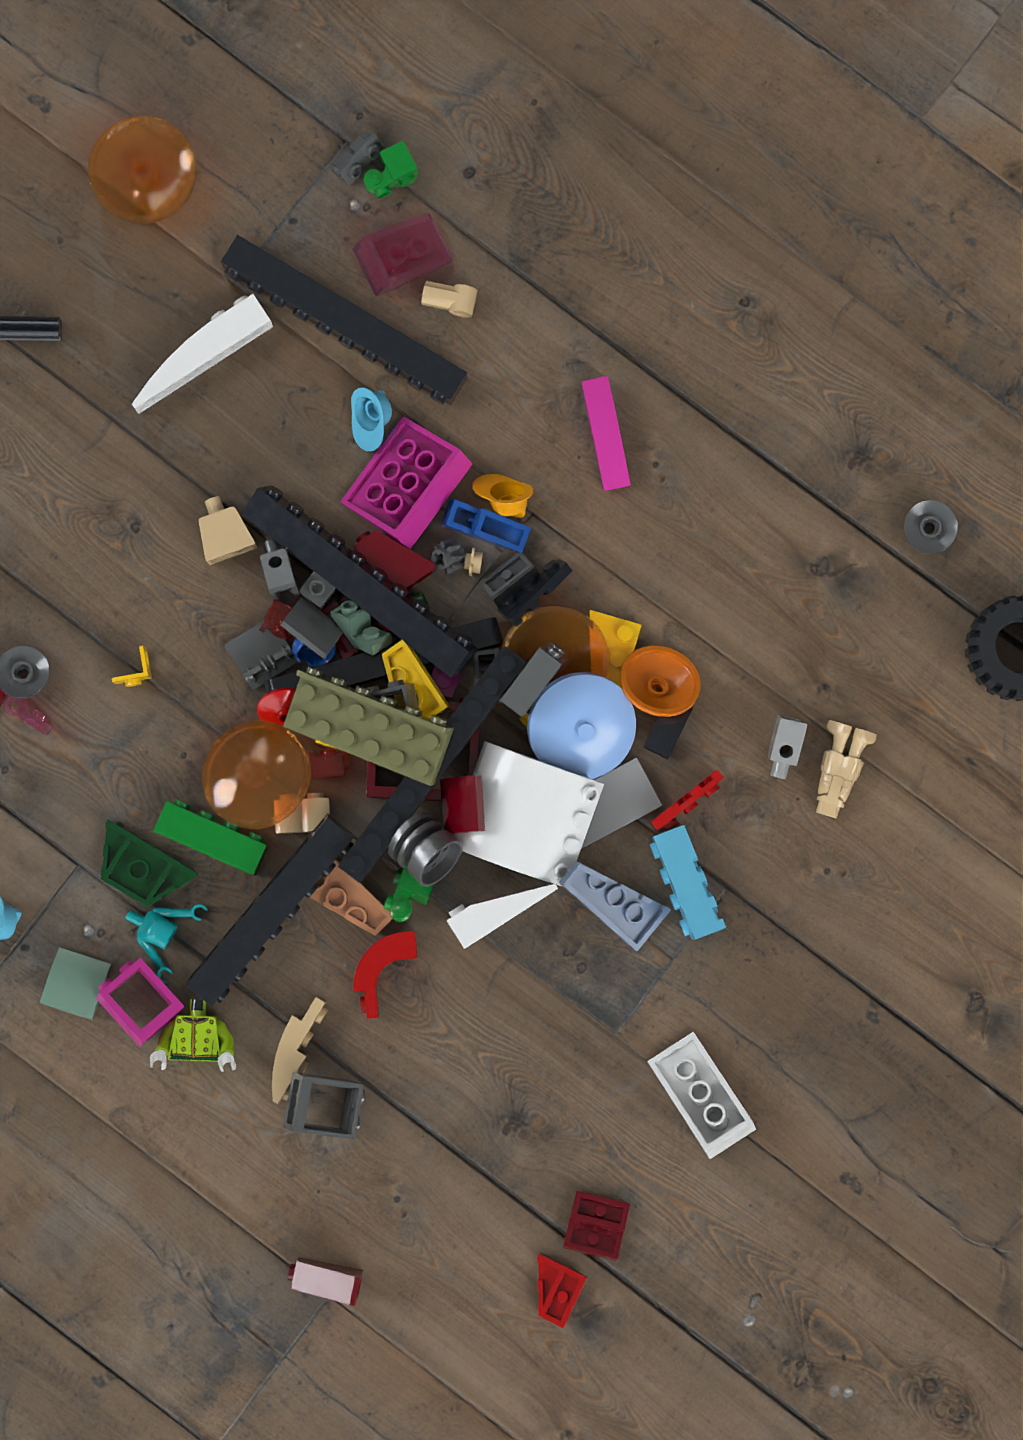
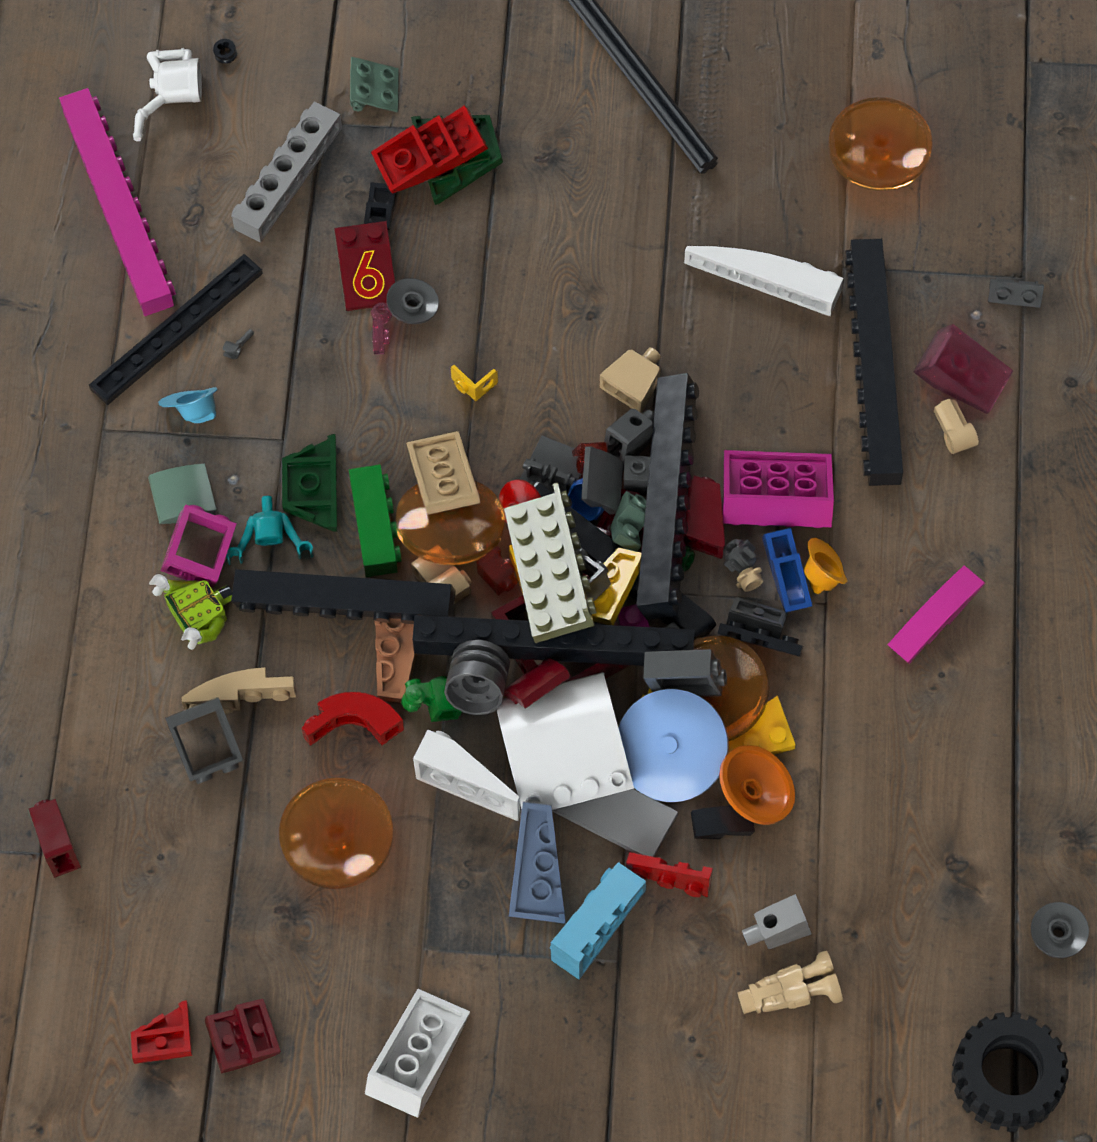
camera: 60 degrees right, 20 degrees down
(210, 753) = (443, 473): none -> tan tile
(369, 416) = (812, 427): medium azure piece -> none
(398, 171) = (1027, 325): green brick -> none
(477, 1046) = (336, 833): none -> clear orange dish

